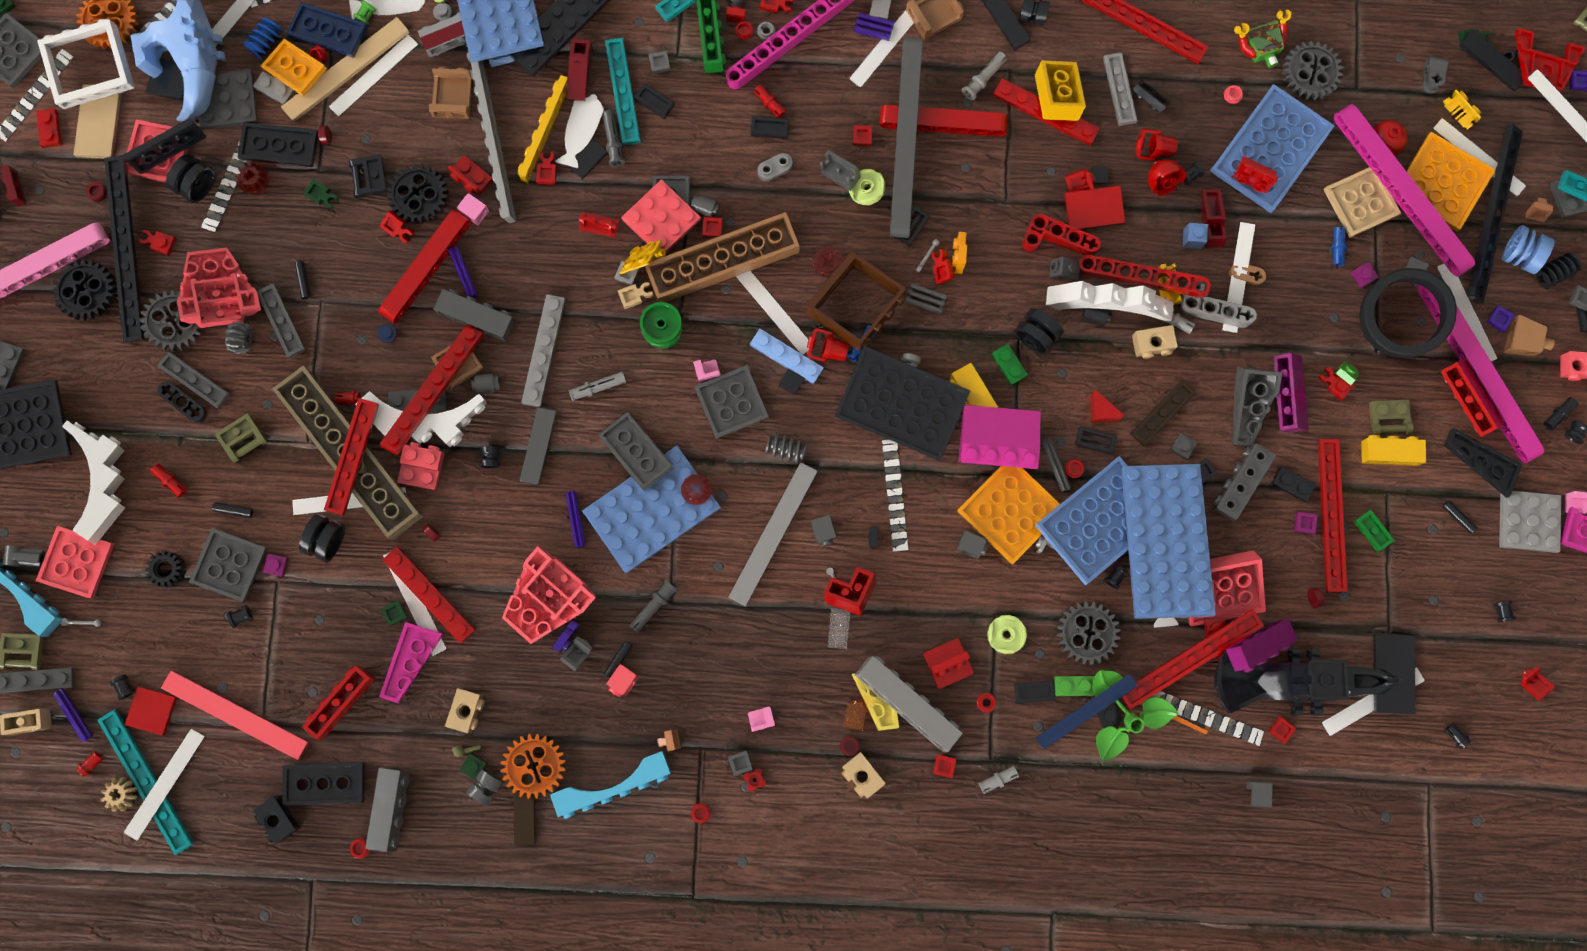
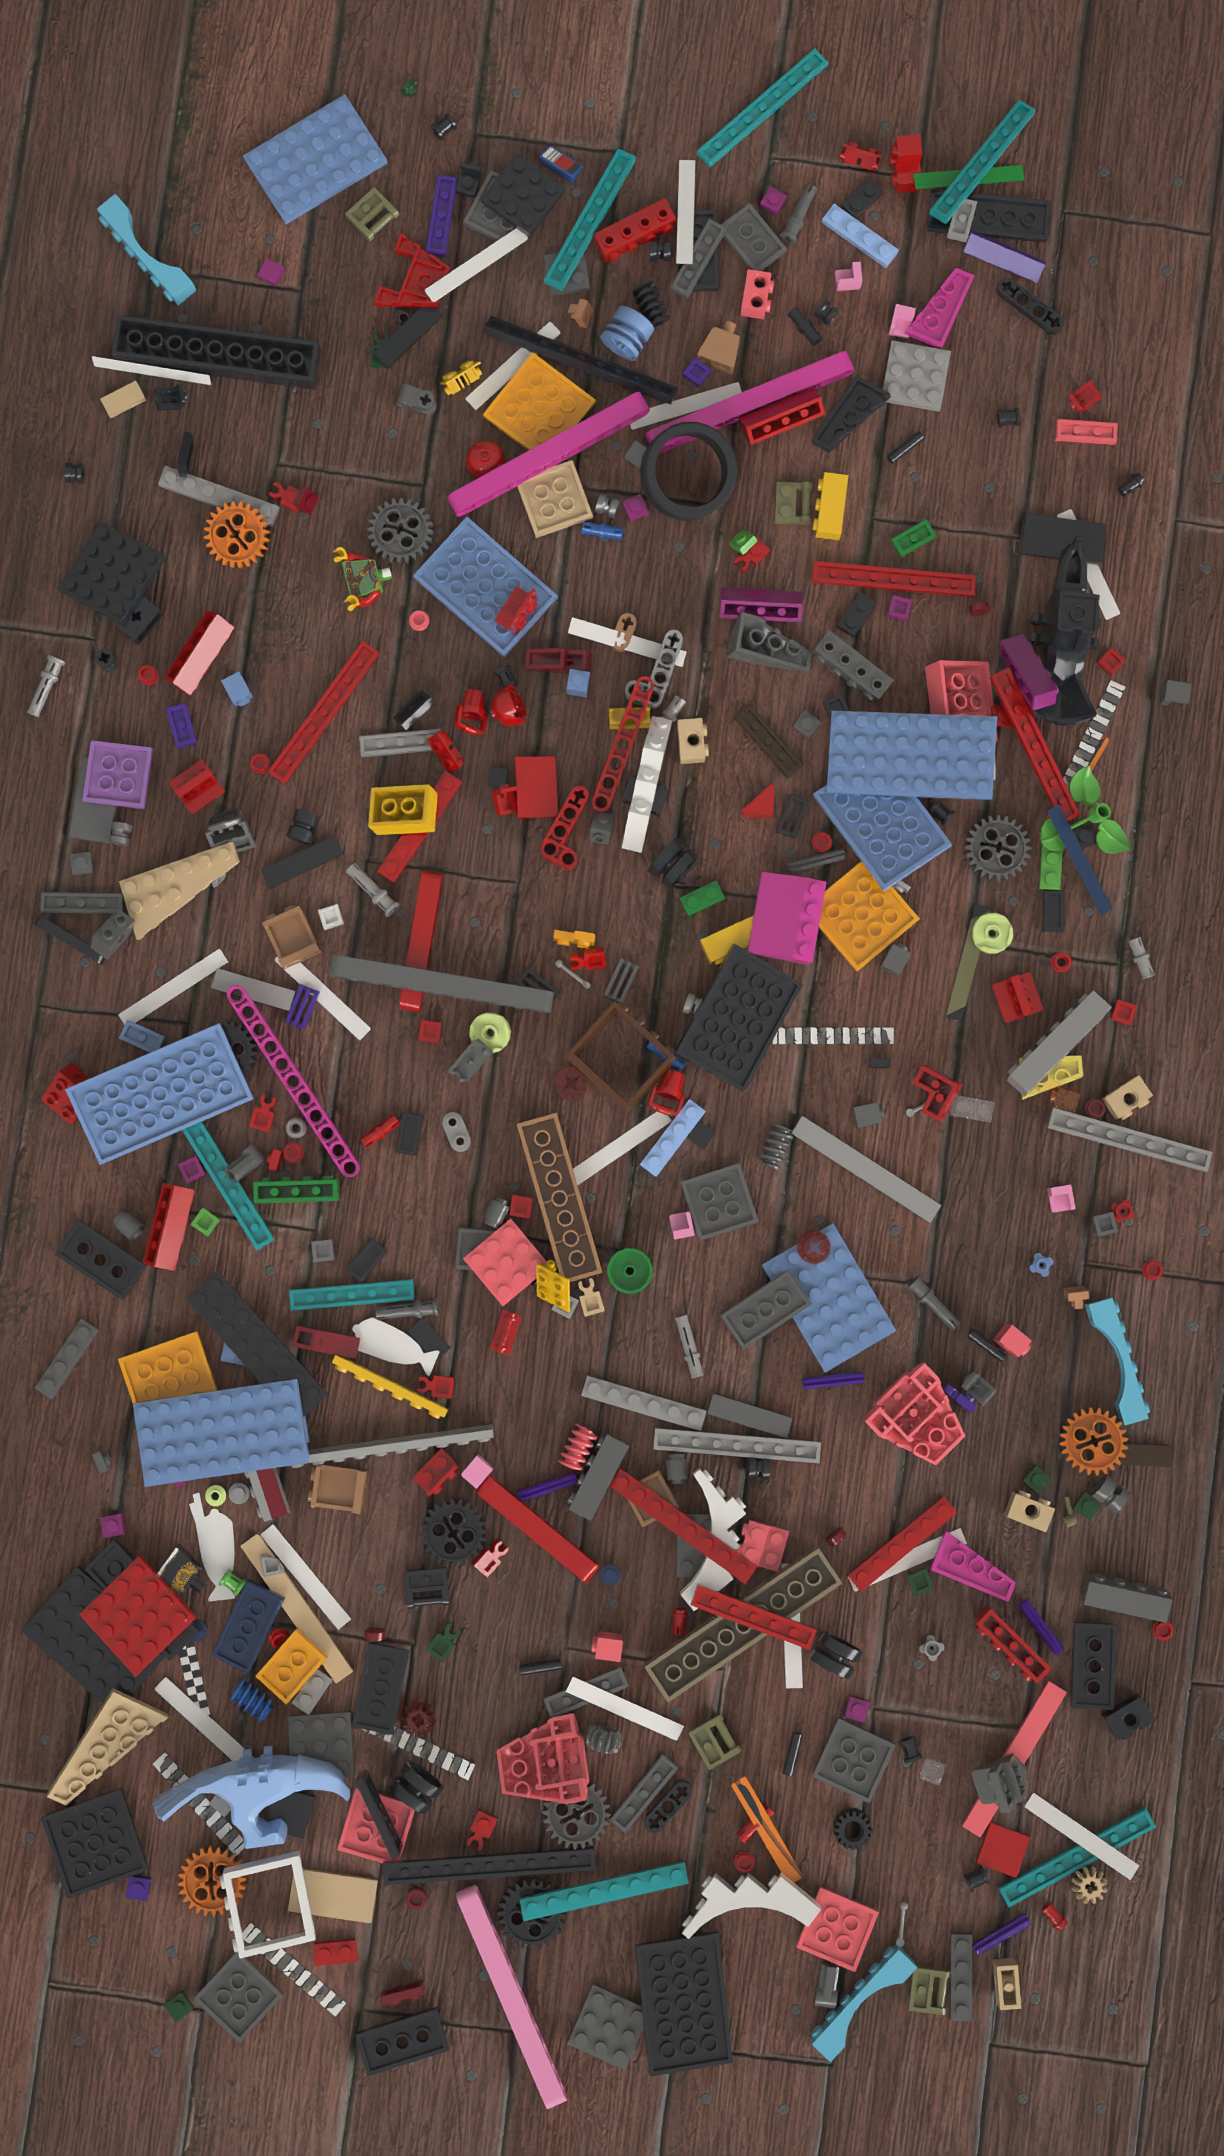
camera: 85 degrees left, 5 degrees up
(104, 349) = (603, 1890): none -> teal plate
(134, 474) = (744, 1862): none -> red plate
(162, 490) = (767, 1830): none -> orange sticker
(210, 702) = (1001, 1782): none -> dark grey piece
(221, 639) = (932, 1771): none -> clear tile
(267, 355) = (624, 1708): none -> white sticker
(321, 333) = (607, 1646): none -> coral brick
(328, 630) = (925, 1648): none -> light grey plate
(357, 731) = (1041, 1627): none -> dark purple axle
(380, 42) = (271, 1566): none -> light grey tile
(495, 716) = (1036, 1479): none -> dark green plate
(499, 295) = (578, 1447): none -> coral piece
(510, 437) = (737, 1445): none -> light grey plate
(698, 710) = (1035, 1267): none -> medium blue plate
(822, 782) = (1129, 1140): none -> light grey plate
(956, 44) = (331, 917): none -> white tile
(967, 613) = (965, 970): none -> olive sticker
(1124, 120) = (449, 758): none -> red hinge
(1363, 248) = (607, 505): none -> flat silver wheel
(1502, 688) = (1086, 431): none -> coral tile

